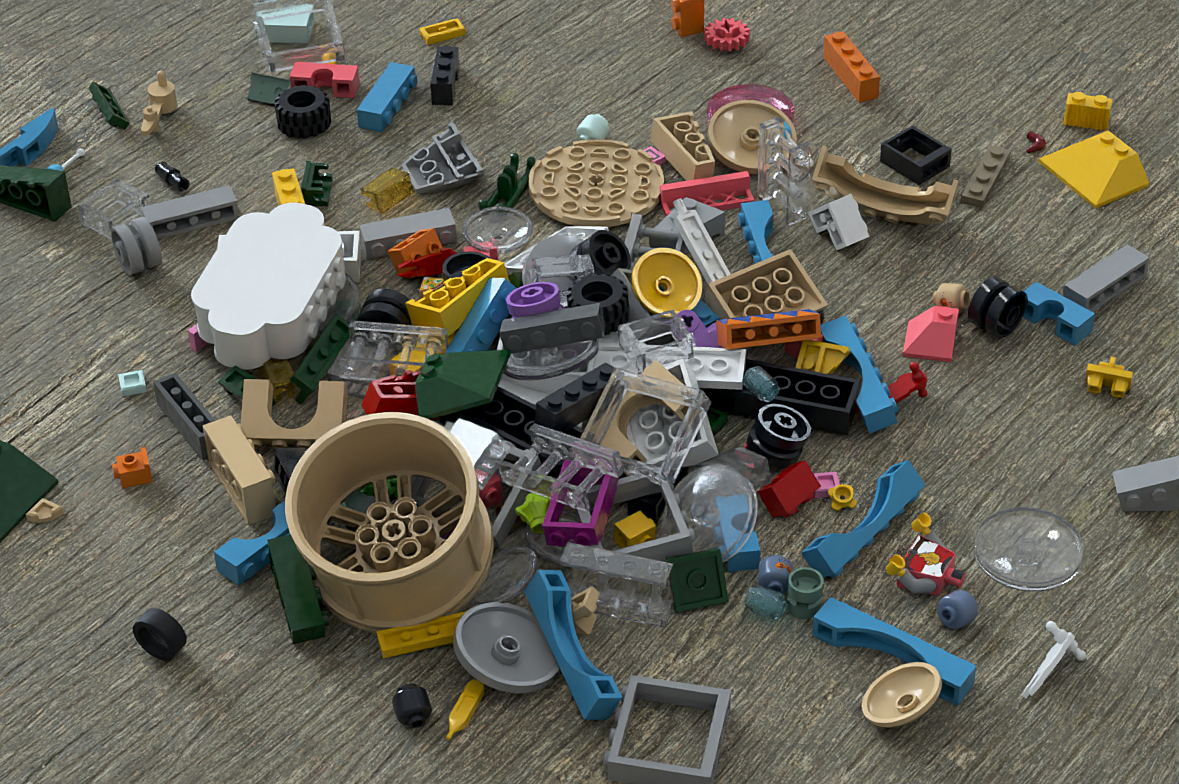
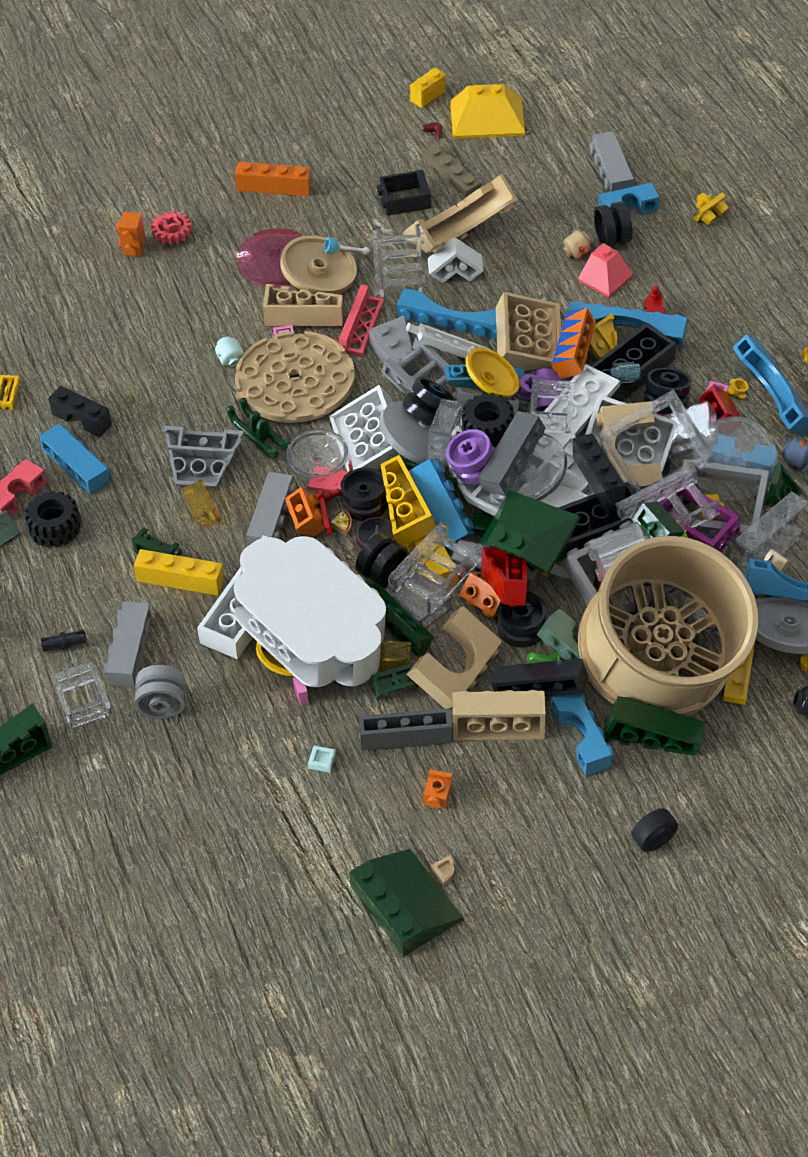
camera: 60 degrees left, 10 degrees up
(521, 460) = (657, 521): none -> dark green hinge

